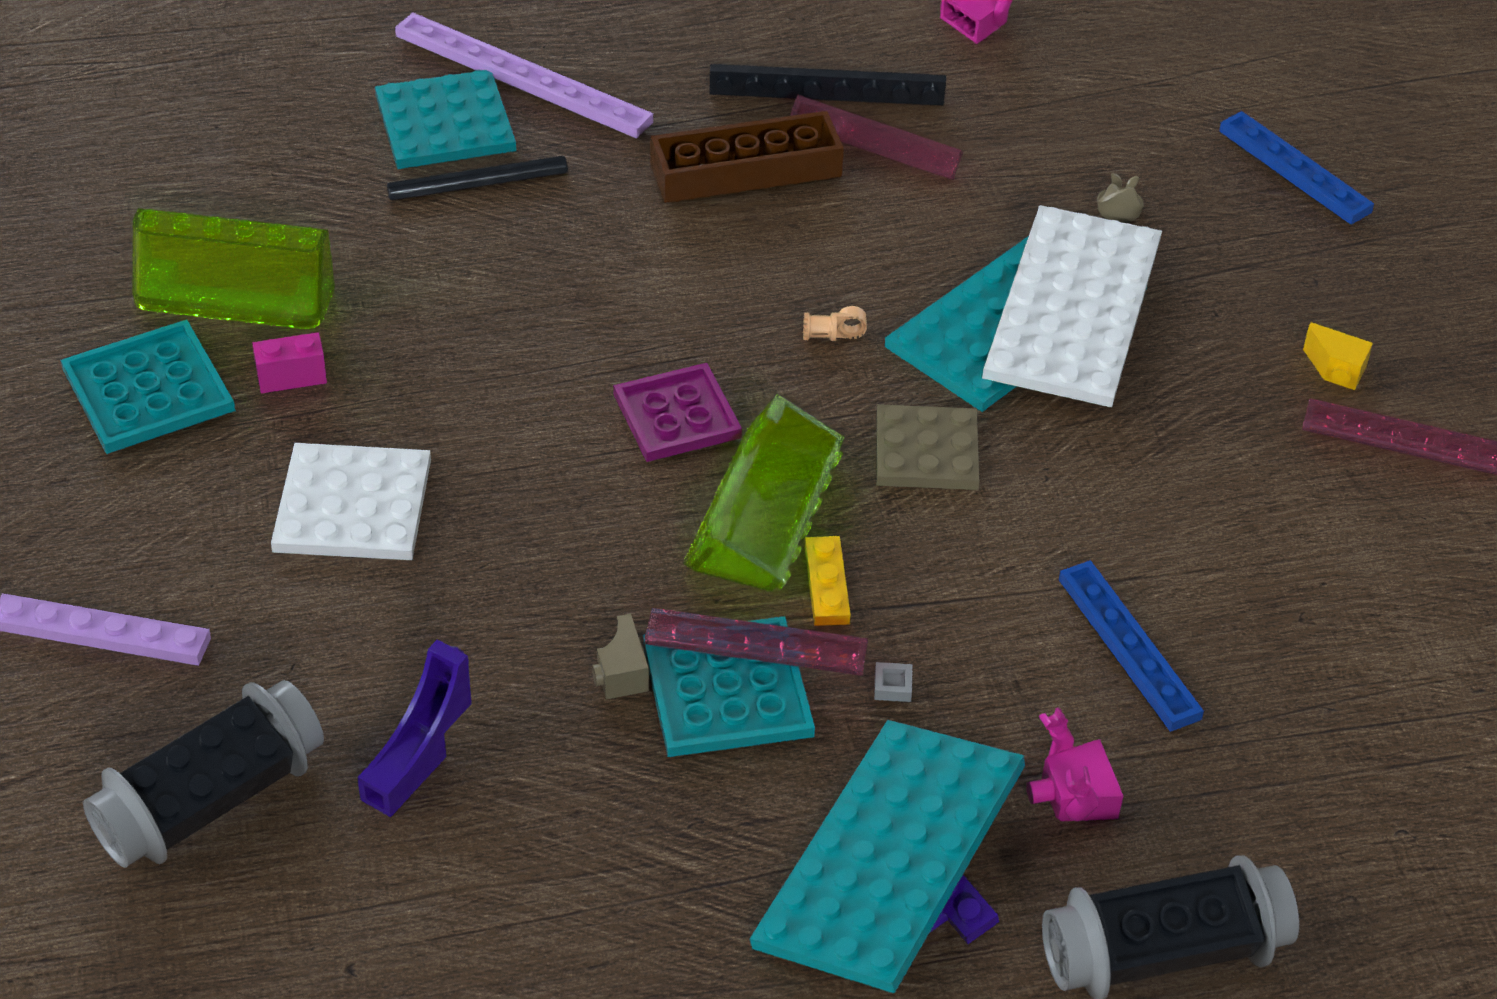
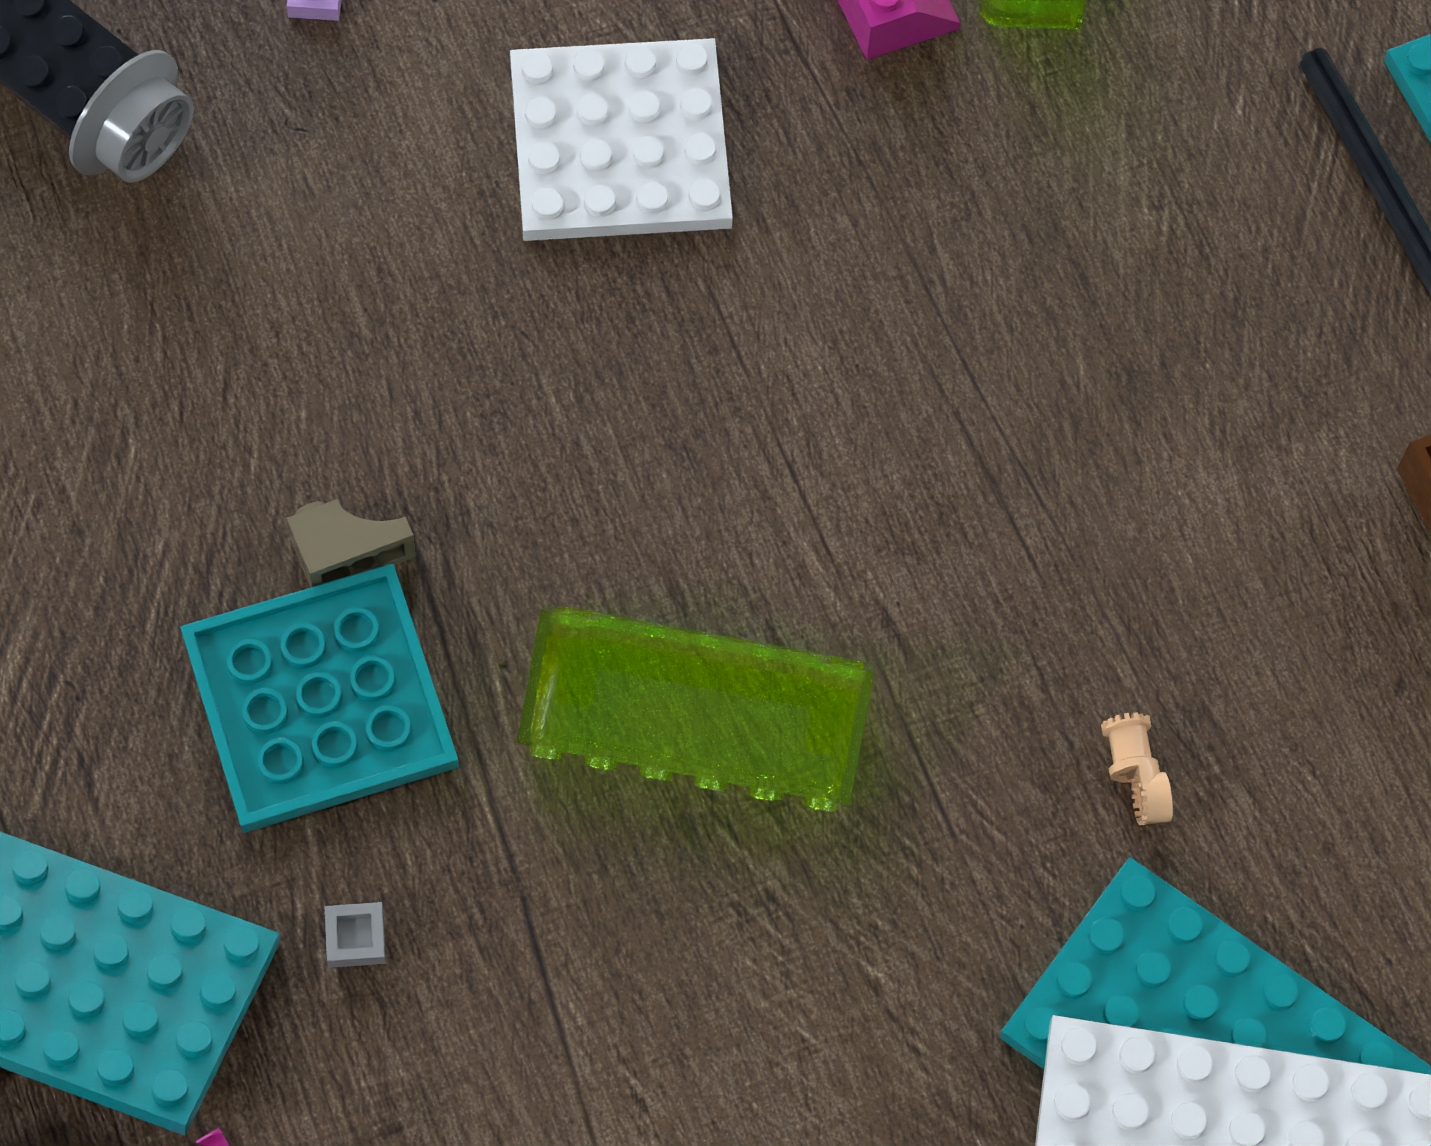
camera: 80 degrees right, 20 degrees up
(419, 739) = (144, 296): dark purple arch -> none
(677, 412) = (884, 552): magenta plate -> none
(756, 641) = (380, 721): clear pink plate -> none
(827, 581) = (562, 820): yellow plate -> none
(927, 447) = (888, 950): dark tan plate -> none

